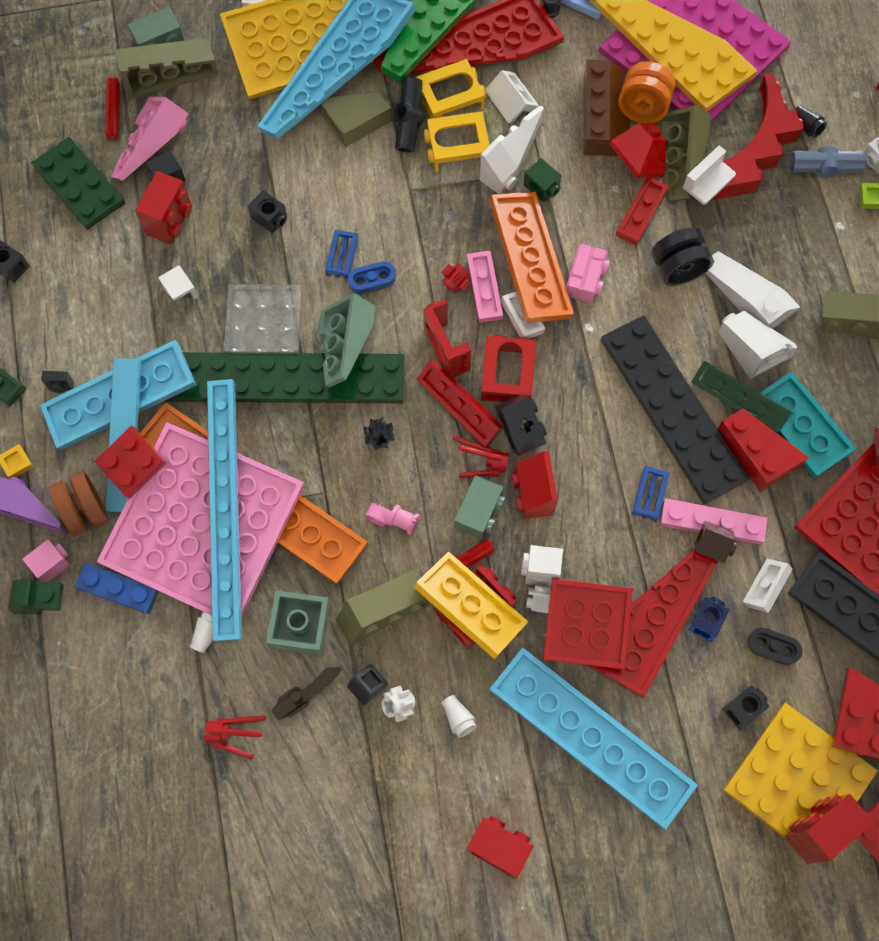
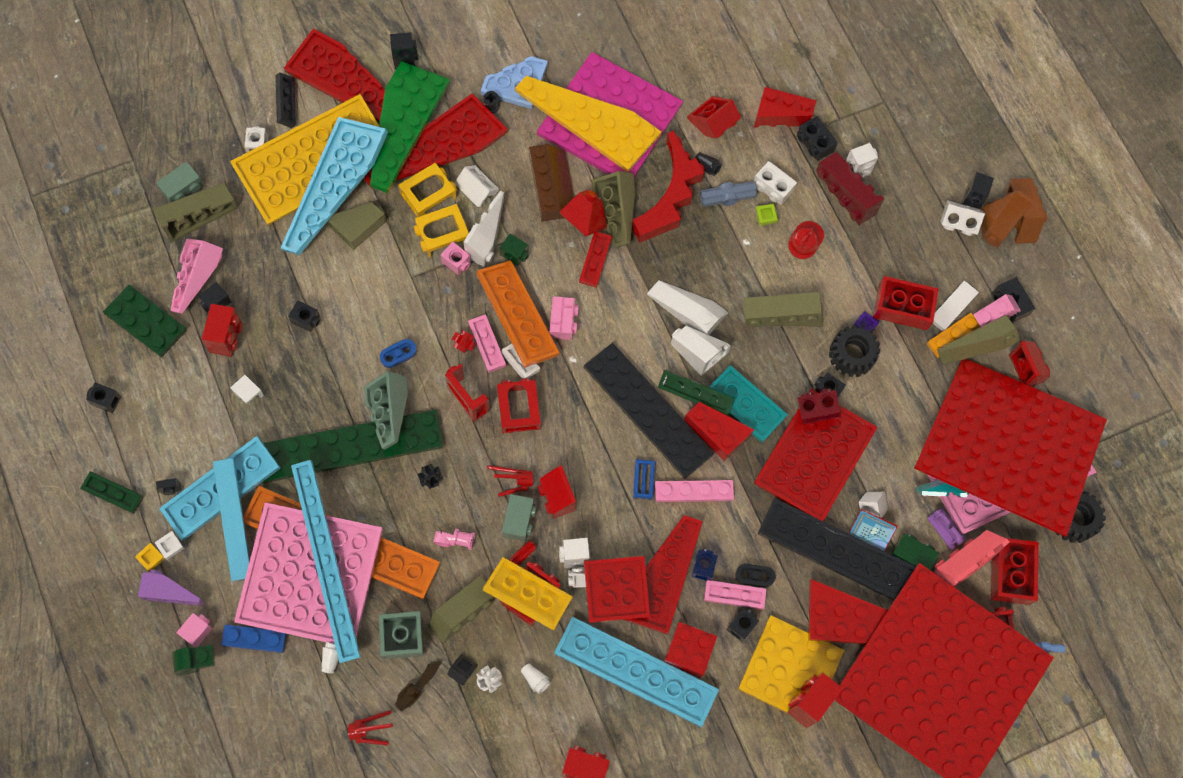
camera: 20 degrees left, 0 degrees up
(40, 451) = (169, 545): none -> white tile
(75, 506) = (207, 582): dark orange wheel -> none
(112, 108) = (158, 253): red axle -> none
(130, 462) = (243, 539): red plate -> none
(263, 319) = (320, 403): clear plate -> none
(338, 270) = (370, 353): blue tile -> none
(408, 115) = (399, 217): black piece -> none
(460, 403) = (486, 439): red plate -> none
(467, 169) = (454, 251): none -> bright pink brick
(510, 415) = (528, 443): black brick -> none
(647, 92) = (580, 165): orange wheel -> none
(670, 724) = (690, 649): none -> red brick
(682, 256) = (632, 292): black wheel -> none
(709, 177) = (641, 225): white panel -> none
(715, 542) = (698, 507): dark brown brick -> none
(742, 665) = (735, 595): none -> bright pink plate
(767, 585) = (742, 531): white plate -> none
(829, 66) = (715, 116): none -> red slope

